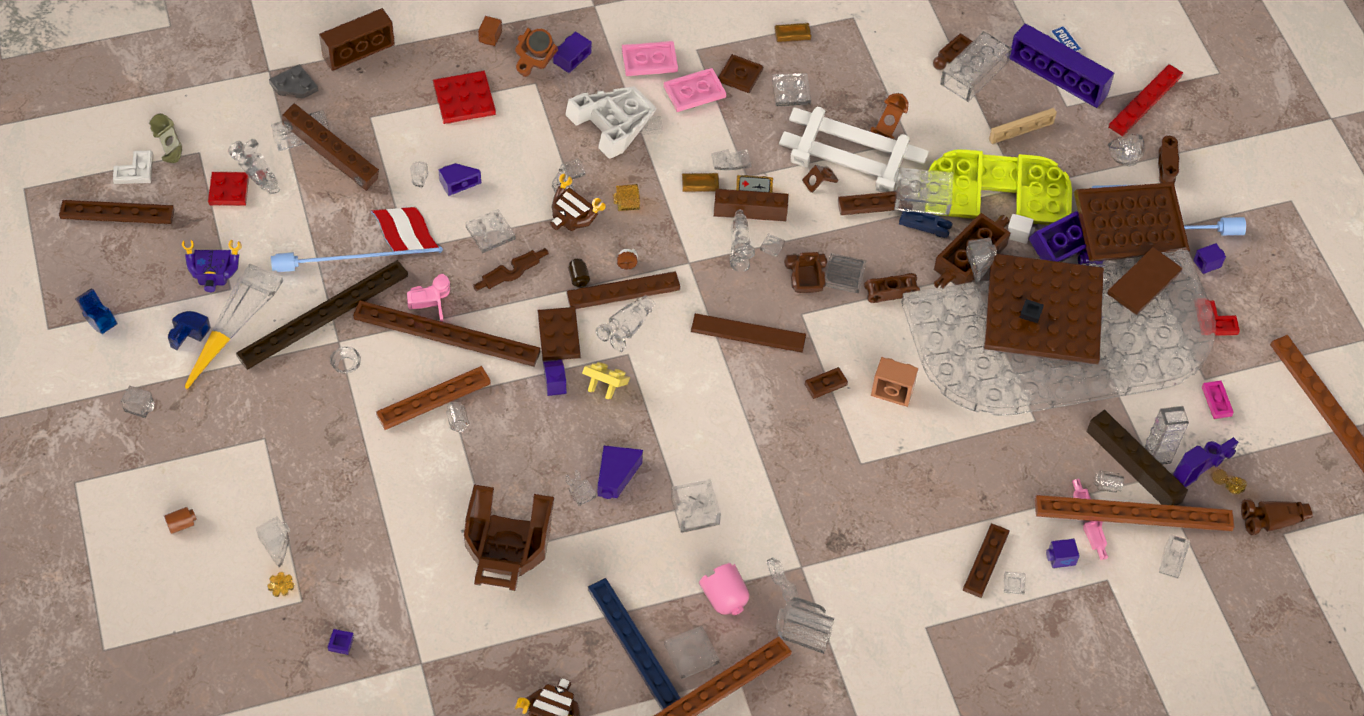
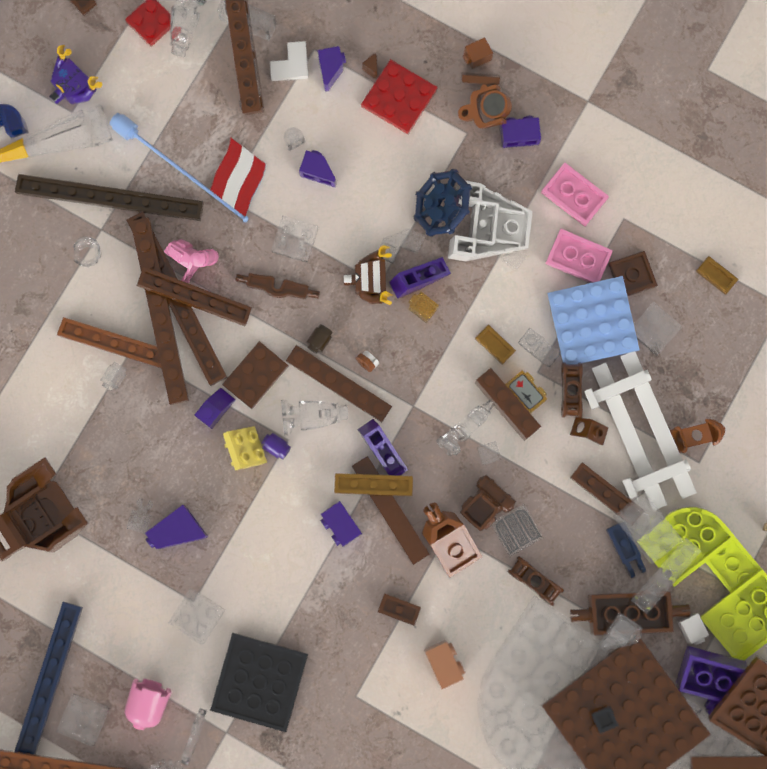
camera: 50 degrees right, 25 degrees up
(368, 135) = (294, 67): none -> white tile
(393, 112) = (331, 65): none -> dark purple slope
(425, 92) = (370, 66): none -> reddish brown slope
(445, 347) = (160, 315): none -> reddish brown plate
(461, 315) = (194, 296): none -> reddish brown plate
(508, 40) = (478, 78): none -> reddish brown tile
(561, 121) = (434, 199): none -> dark blue plate
(603, 183) = (419, 277): none -> dark purple slope
(625, 359) = (276, 446): none -> dark purple brick
(699, 299) = (382, 448): none -> slope
(720, 322) = (373, 484): none -> pearl gold plate
(726, 366) = (341, 524): none -> dark purple brick
(748, 115) = (593, 321): none -> light blue plate
(781, 164) = (571, 375): none -> reddish brown piece
(786, 511) = (259, 682): none -> black plate
(809, 308) = (449, 540): none -> plate
(967, 202) = (666, 575): none -> clear brick

